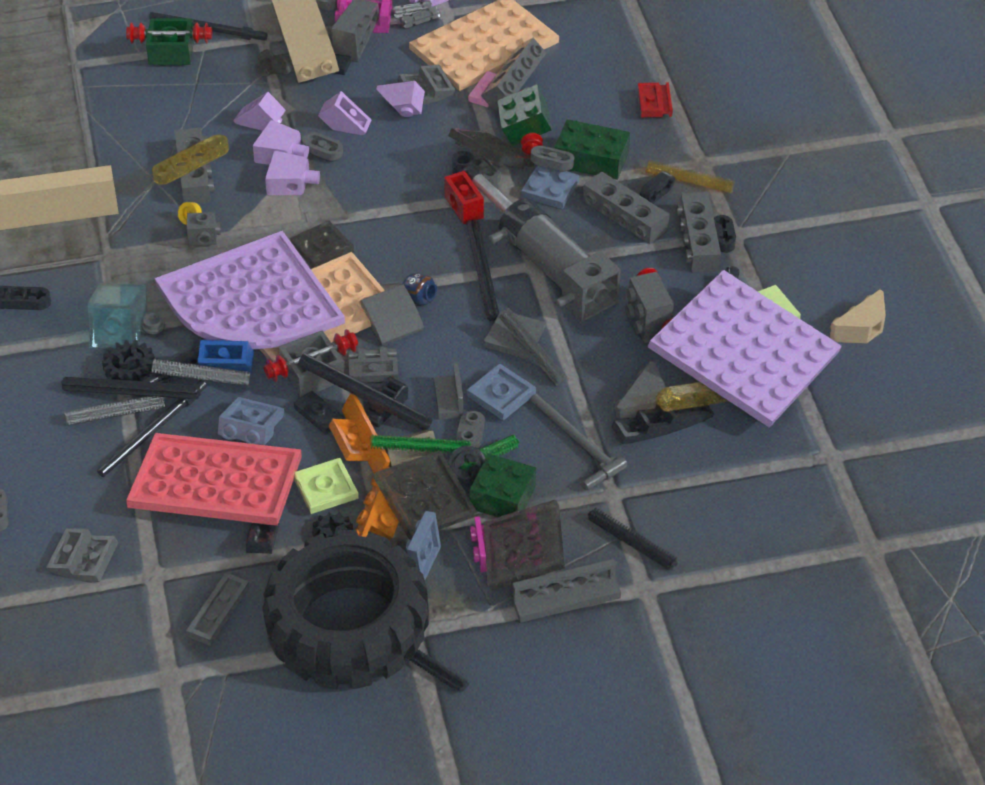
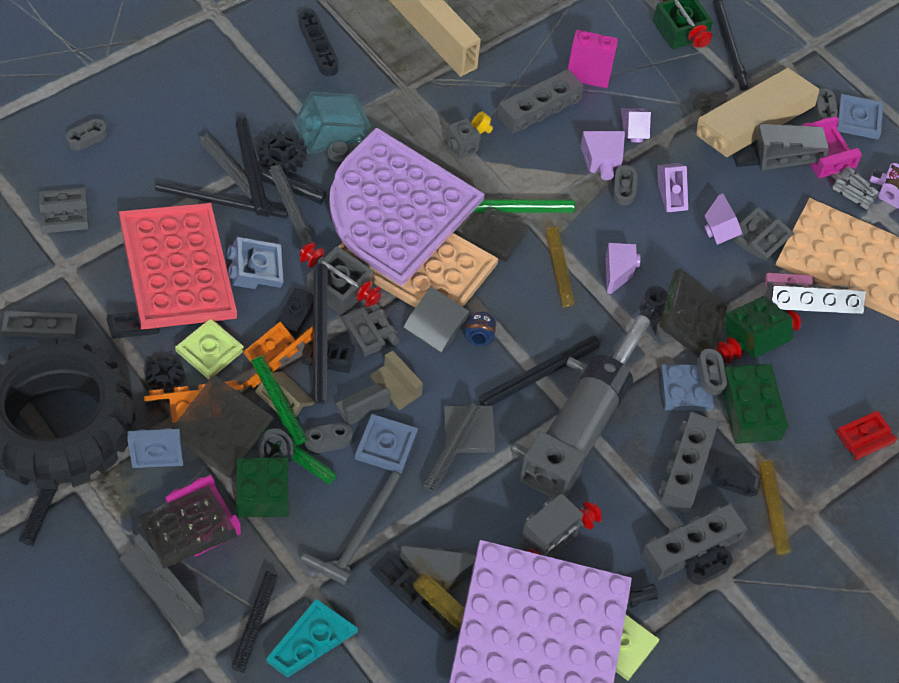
camera: 60 degrees right, 10 degrees up
(168, 170) = (532, 96): clear yellow beam -> none
(179, 107) = (592, 58): none -> dark pink panel
(226, 354) = (316, 215): blue brick -> none
(289, 174) = (570, 174): lavender torso -> none
(305, 211) = (527, 205): none -> green axle
(380, 219) = (560, 267): none -> clear yellow axle
(406, 179) = (620, 264): none -> lavender slope
(437, 362) = (399, 379): none -> dark tan panel
(464, 197) = (616, 318): red brick -> none
(668, 503) = (310, 638): none -> teal wing

